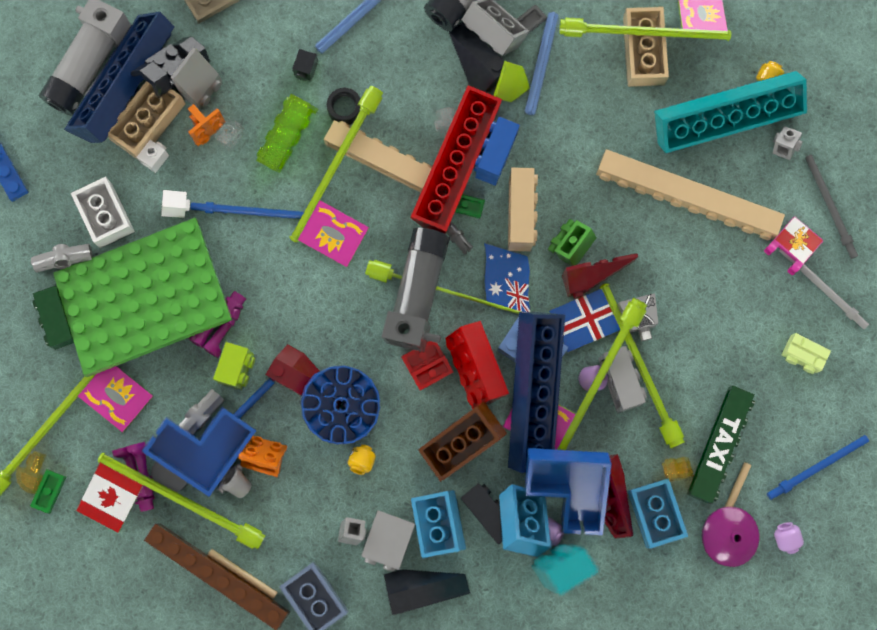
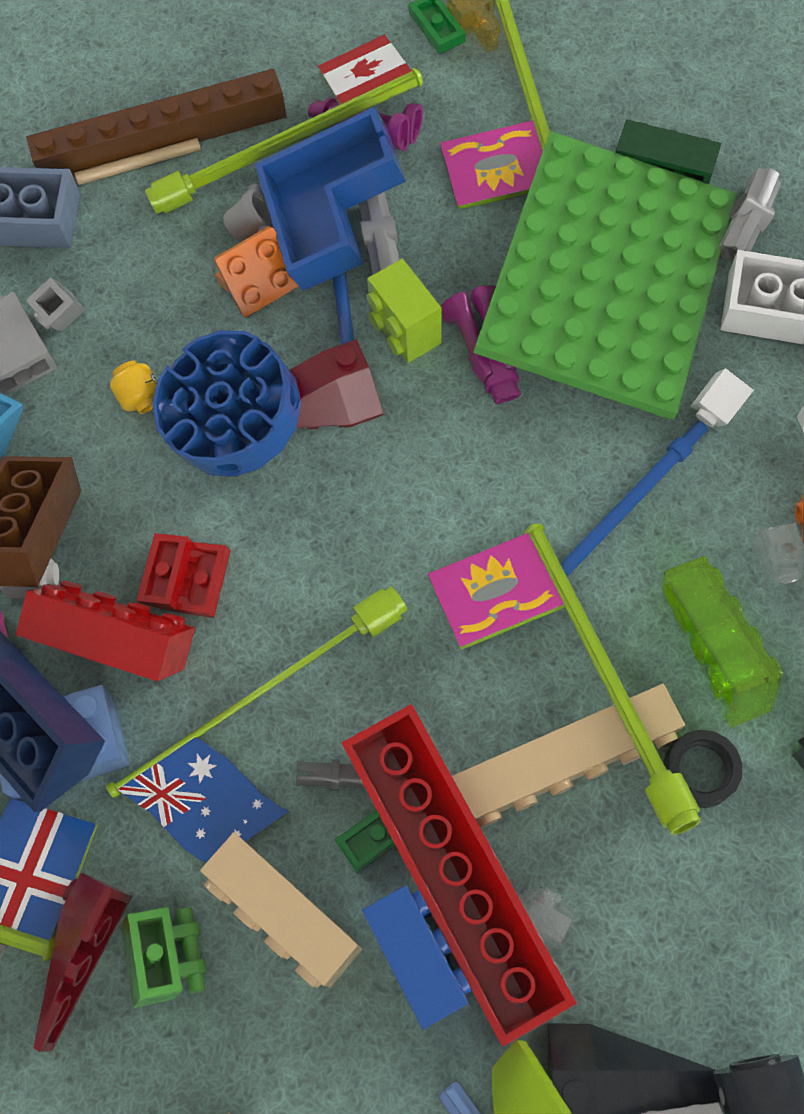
camera: 135 degrees right, 10 degrees down
(417, 291) = (253, 579): dark grey piece -> none

